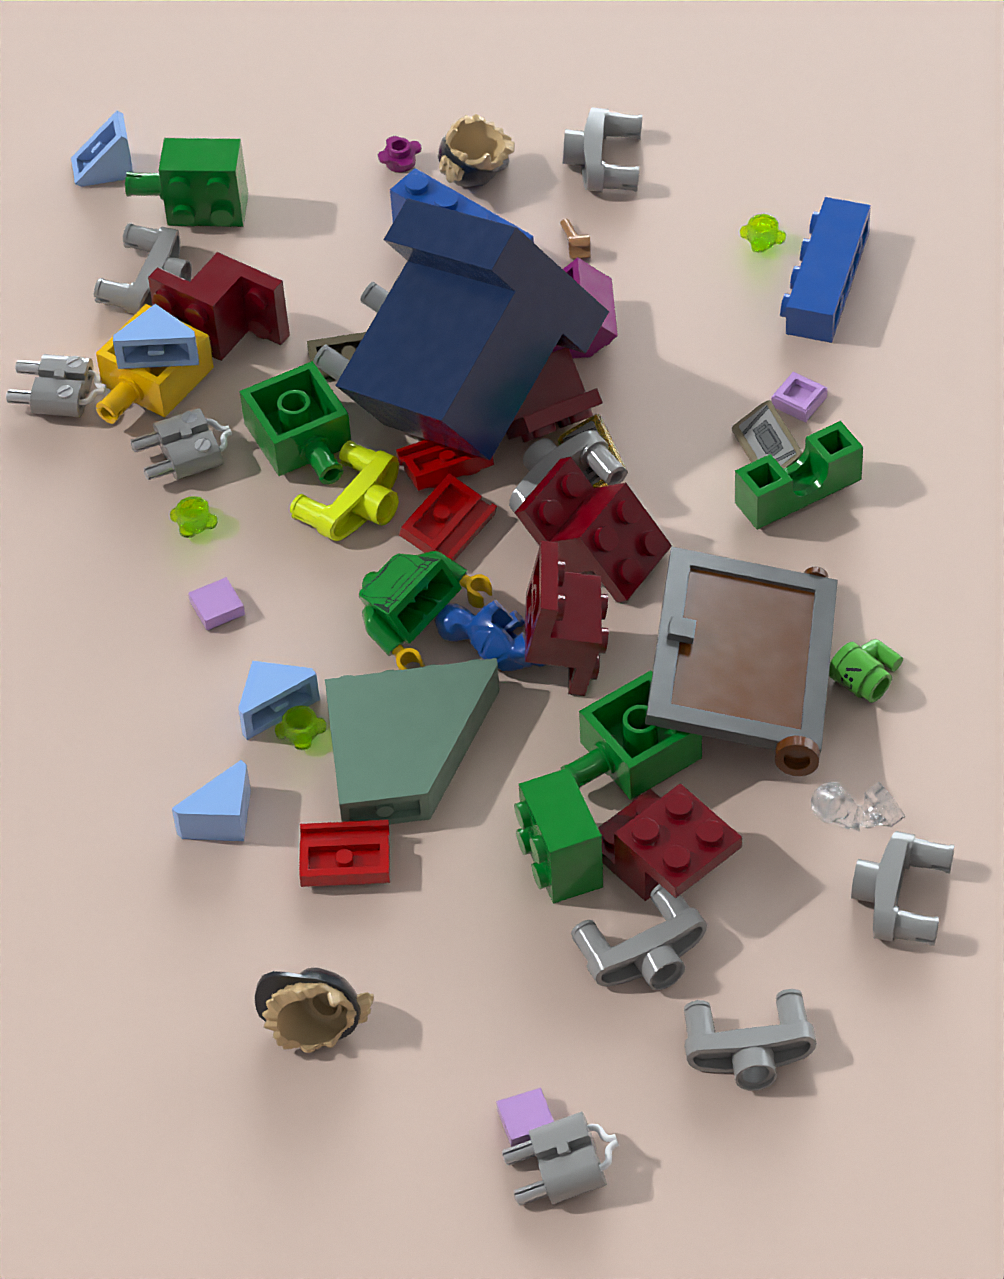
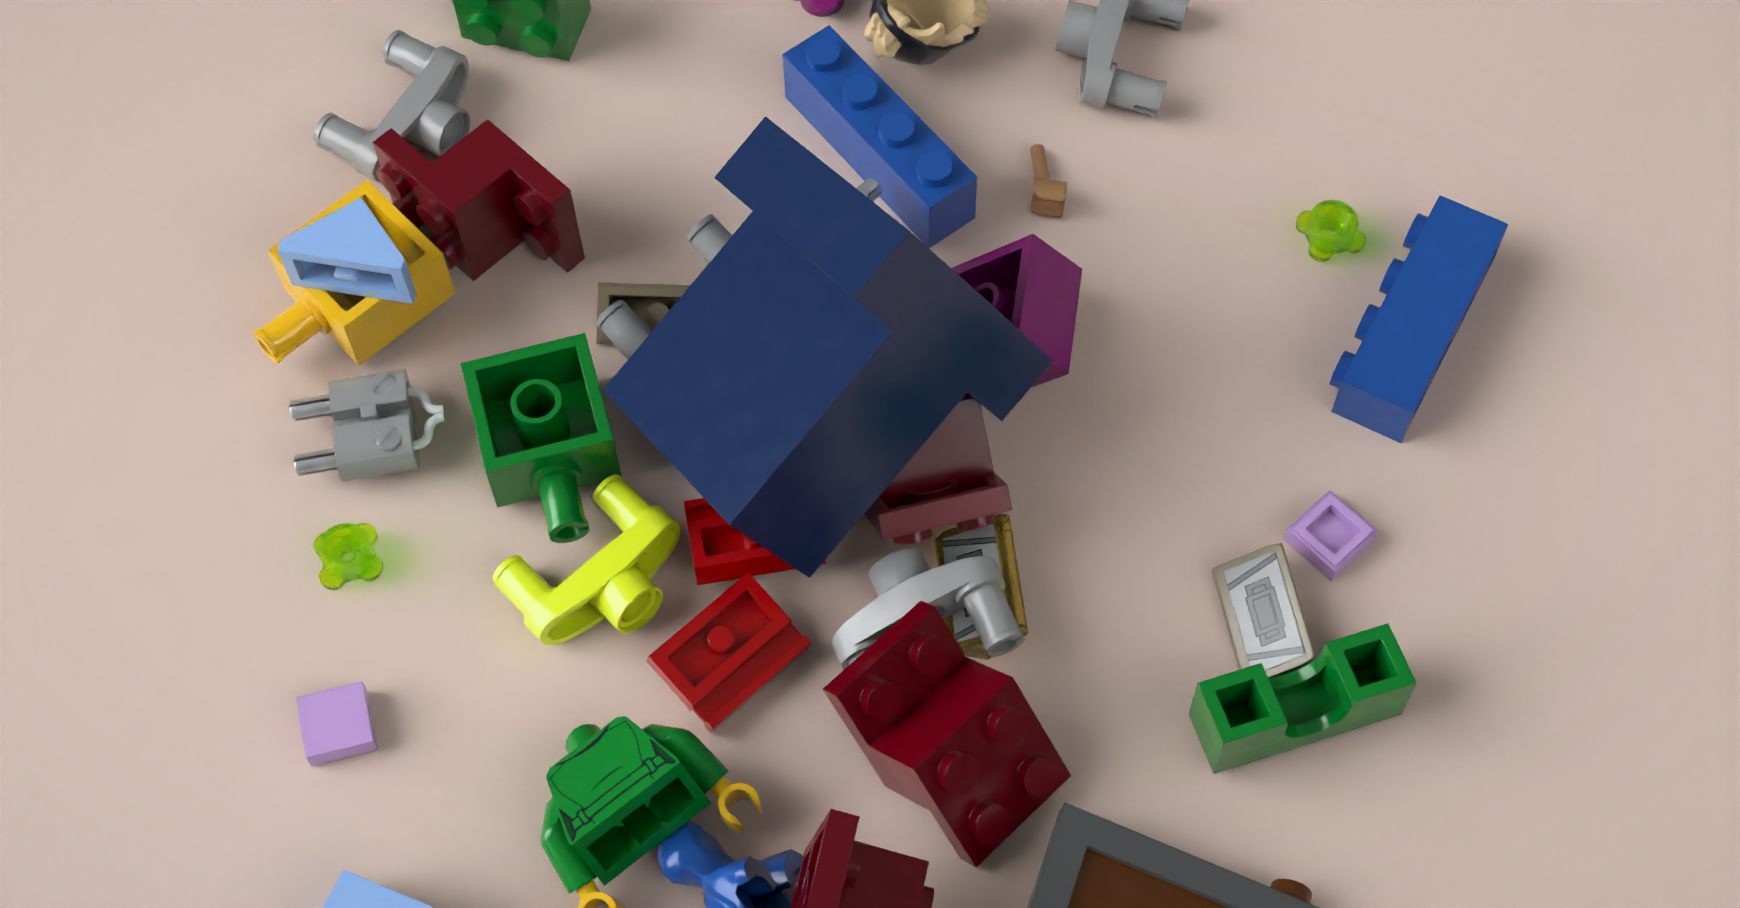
camera: 10 degrees right, 10 degrees up
(60, 385) = (219, 282): light grey piece -> none

